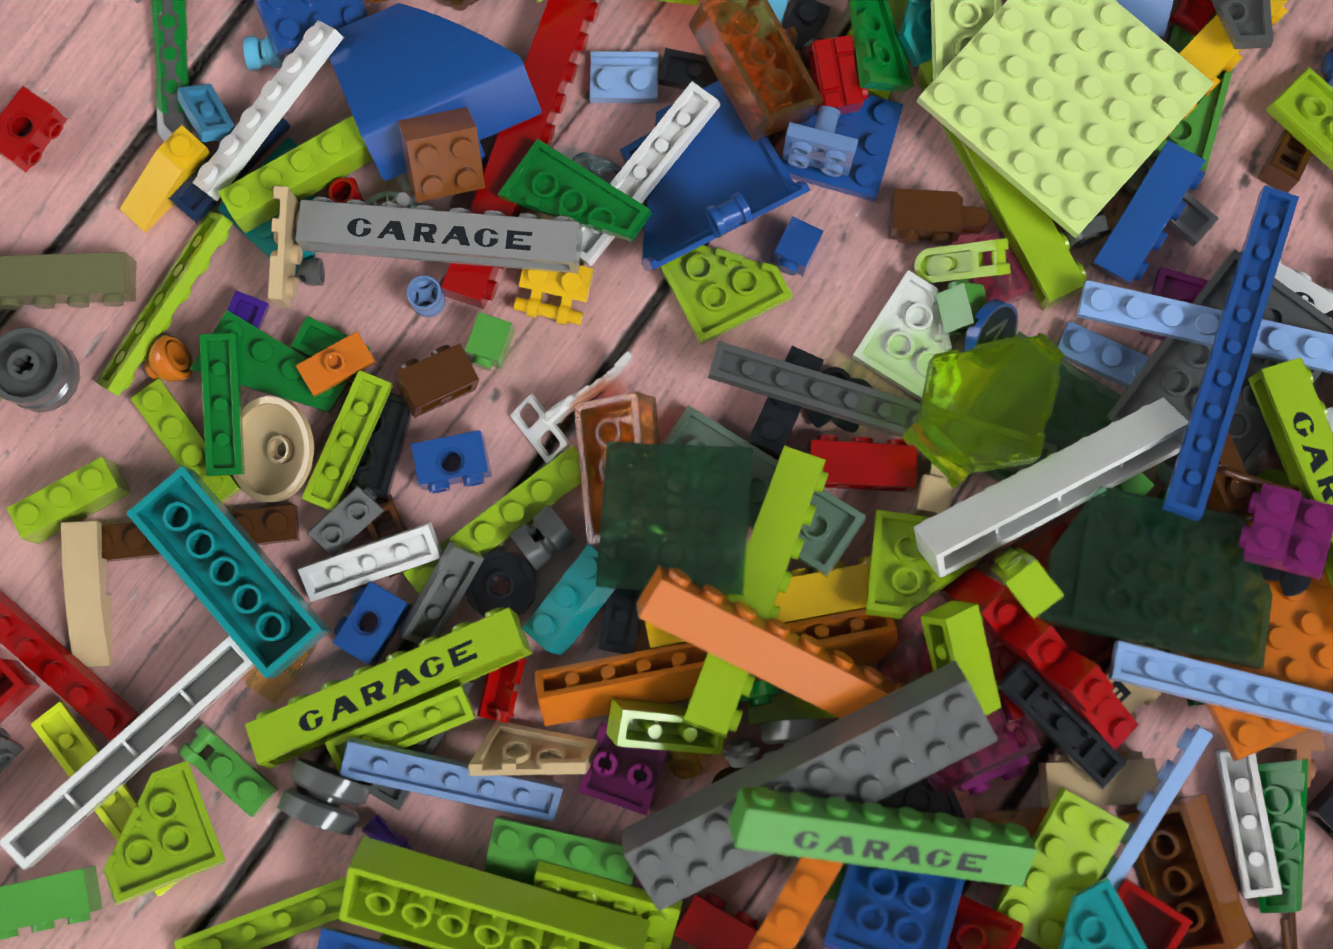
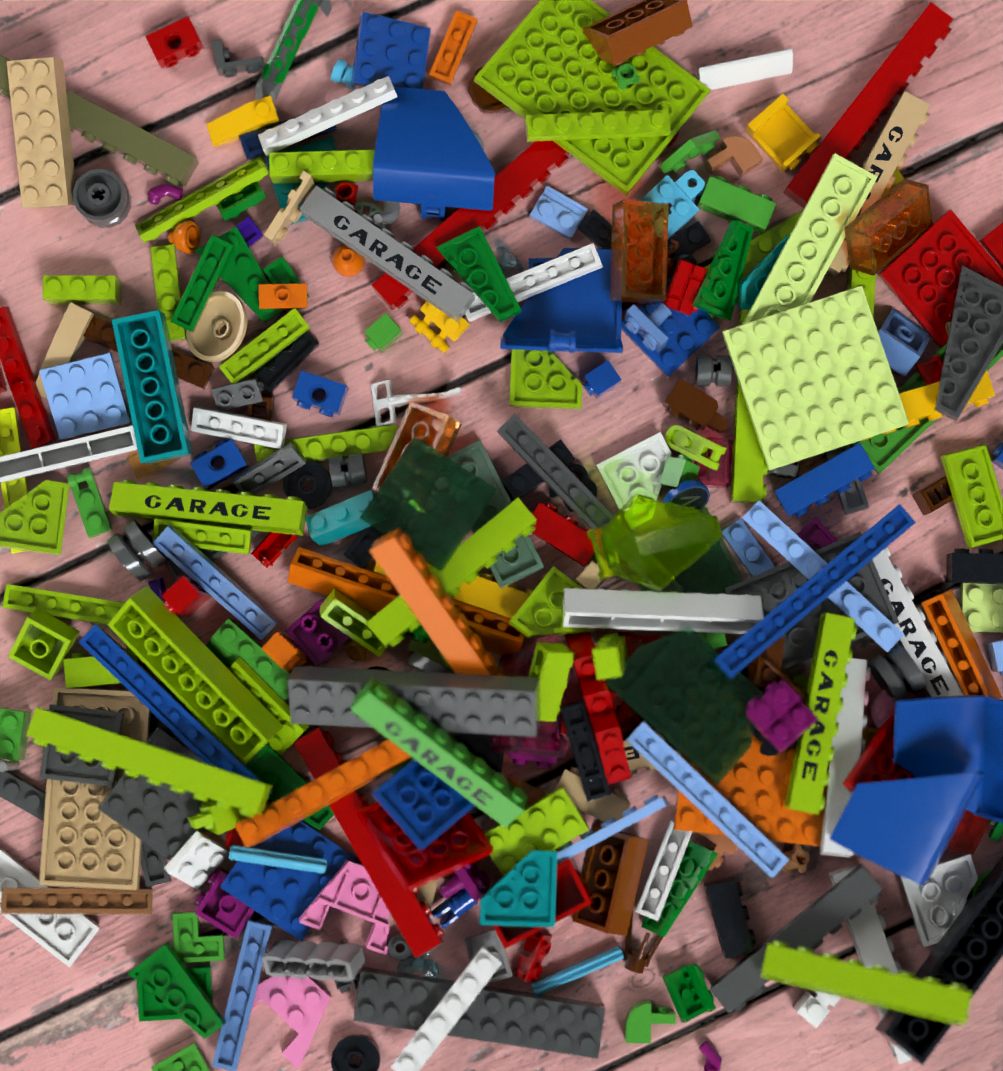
camera: 30 degrees right, 5 degrees up
(108, 319) = (162, 190): none -> magenta arm
(114, 123) = (230, 69): none -> dark grey bracket
(146, 634) = (85, 395): none -> light blue plate
(205, 112) = (290, 94): dark azure plate -> none
(210, 285) = (236, 203): none -> green plate
(312, 272) = (300, 230): dark grey hinge -> none
(392, 276) = (347, 261): none -> orange brick
(421, 291) = (361, 280): medium blue wheel -> none
(422, 823) = (185, 597): none -> red brick
(436, 379) = (338, 339): reddish brown brick -> none
(442, 154) = (415, 204): dark orange brick -> none
(531, 751) = (270, 591): tan wing -> none
(595, 820) = (285, 652): none -> orange brick
(741, 752) = (393, 662): light grey plate -> none
(932, 157) = (704, 370): none -> dark grey wheel

